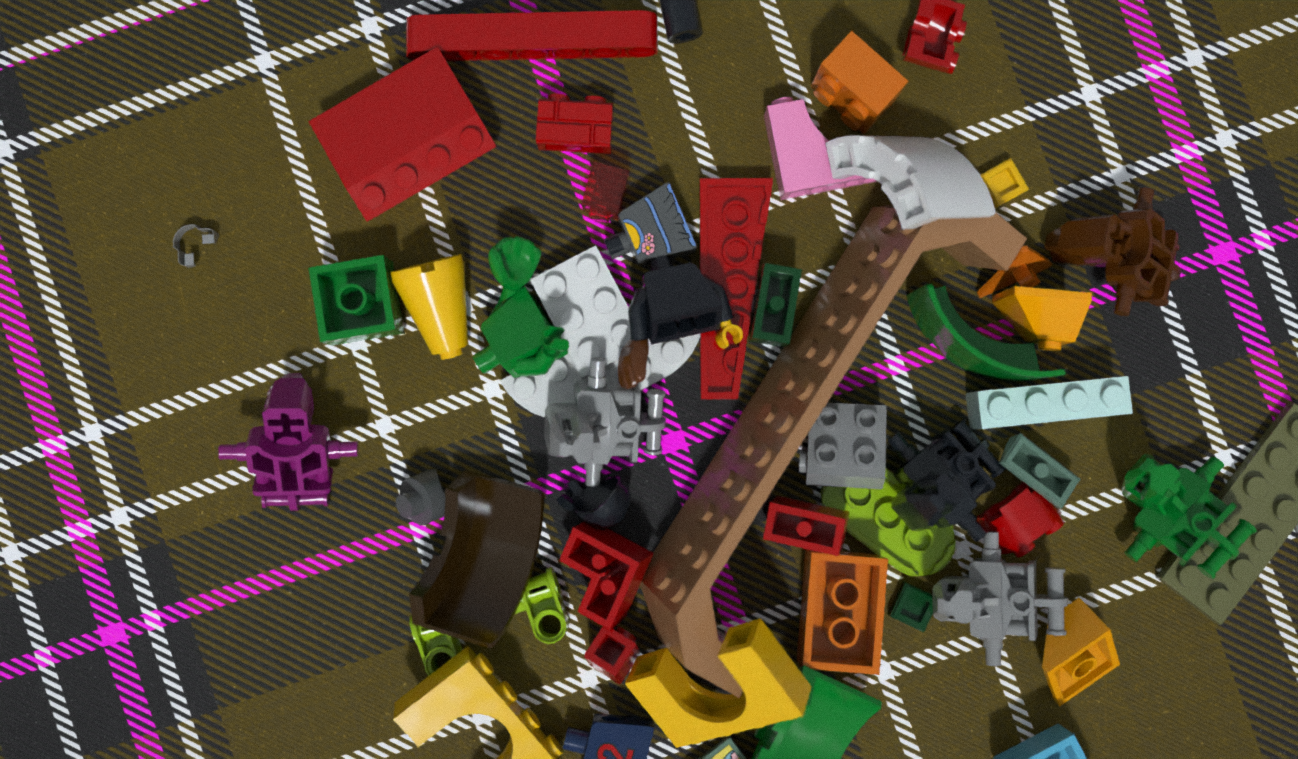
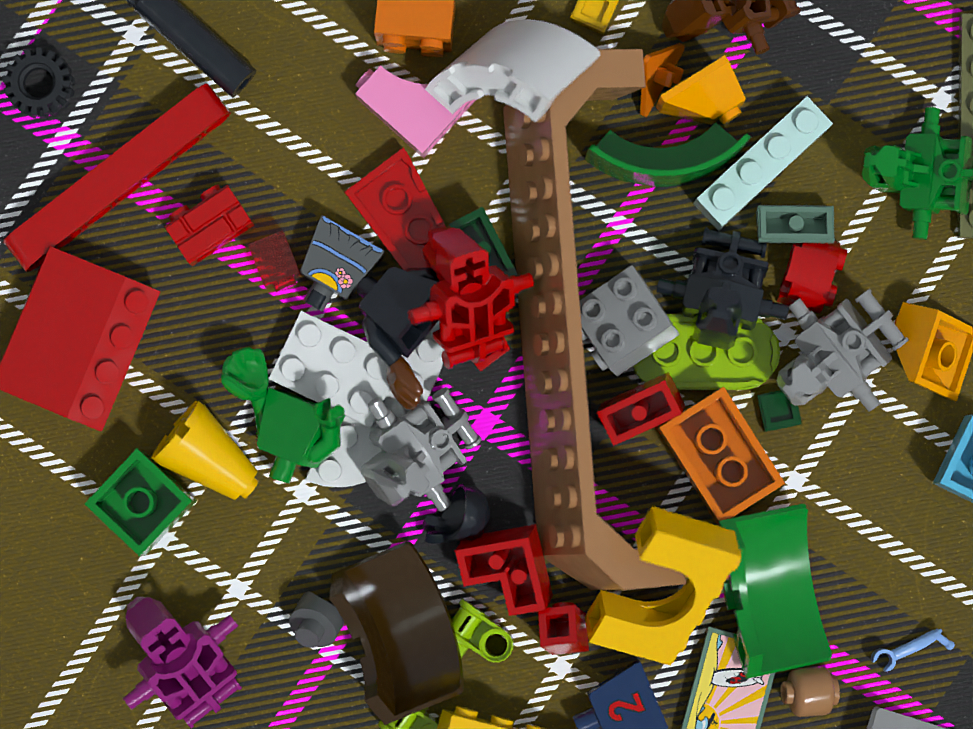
camera: 35 degrees left, 0 degrees up
(735, 333) = (468, 299): none -> red piece

